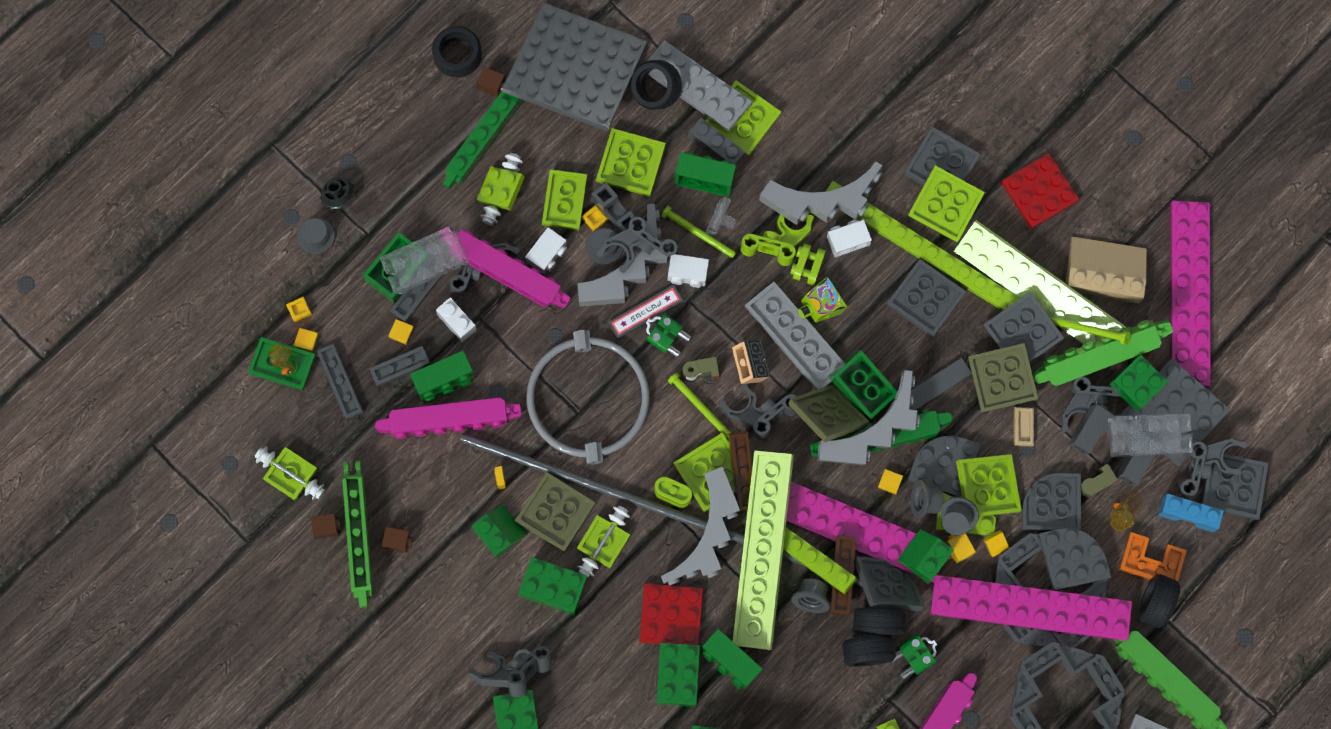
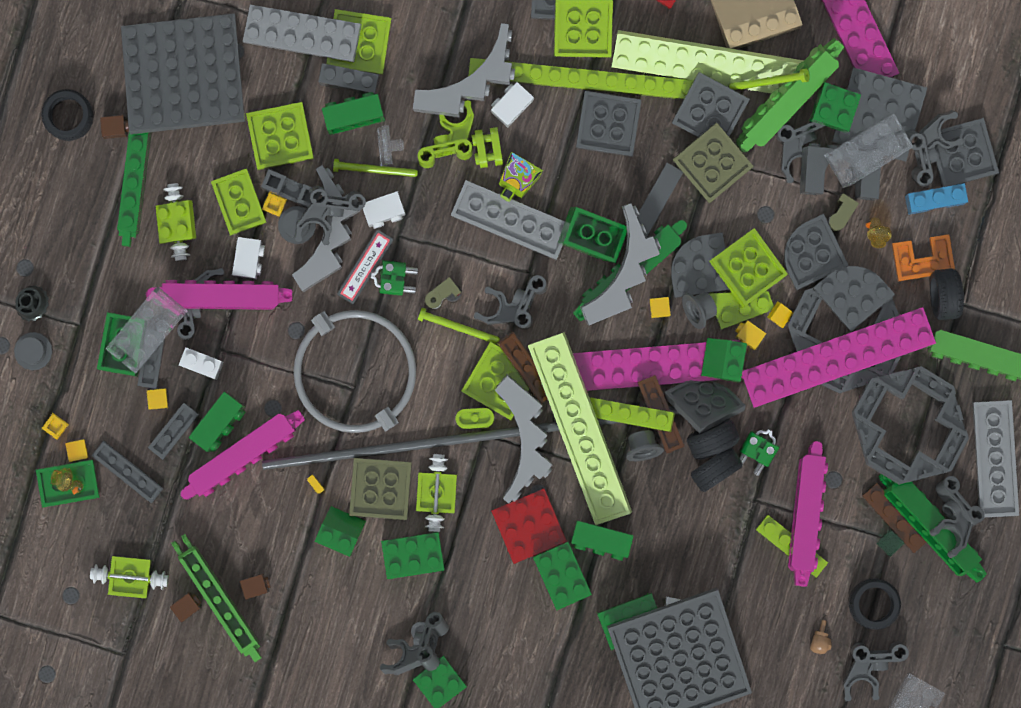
camera: 25 degrees left, 10 degrees up
(673, 84) = (255, 67): black tyre -> none
(751, 362) = (483, 265): brick -> none
(828, 413) = (575, 277): olive plate -> none
(959, 515) = (736, 310): dark grey piece -> none
(1023, 426) = (752, 196): tan tile -> none

